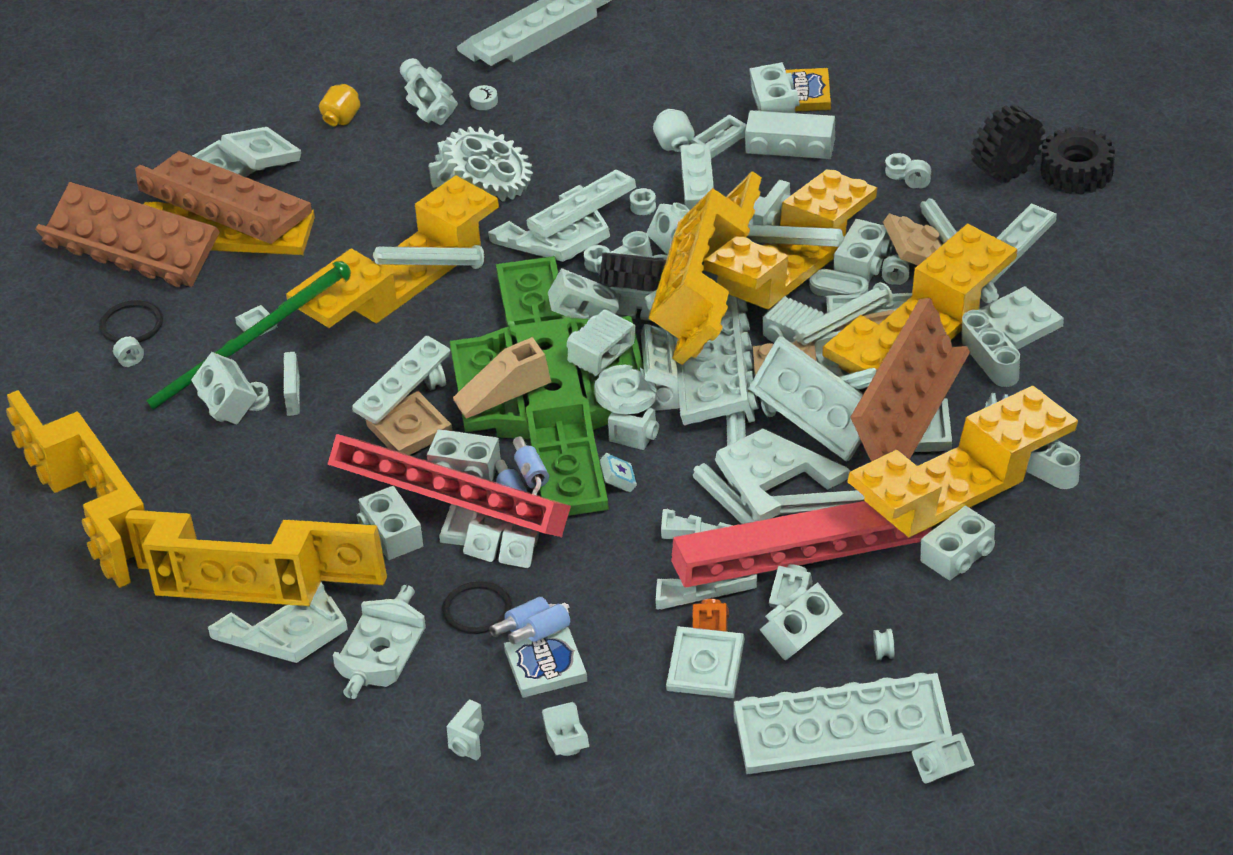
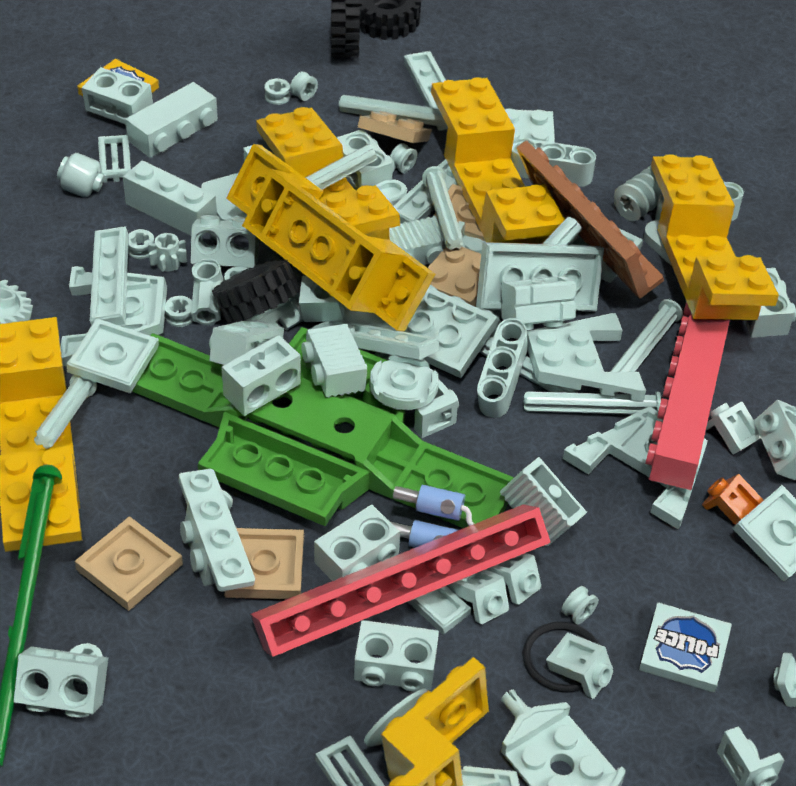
camera: 60 degrees left, 5 degrees up
(291, 383) = (108, 620): light aqua tile -> none
(347, 366) = (128, 563): none -> tan plate
(470, 615) = (582, 662): none -> light aqua bracket
(506, 249) = (113, 355): none -> light aqua tile
(506, 377) = (321, 450): tan slope -> none
(525, 581) = (580, 605): none -> light aqua bush
(533, 621) = (655, 616): light blue piece -> none
(537, 313) = (261, 375): none -> light aqua brick
(588, 516) = (541, 488): none -> light aqua brick
(618, 472) = (482, 453): light aqua tile -> none
(641, 215) = (167, 252): none -> light aqua gear
(705, 434) = (502, 354): none -> light aqua beam
(785, 411) = (539, 301): none -> light aqua brick

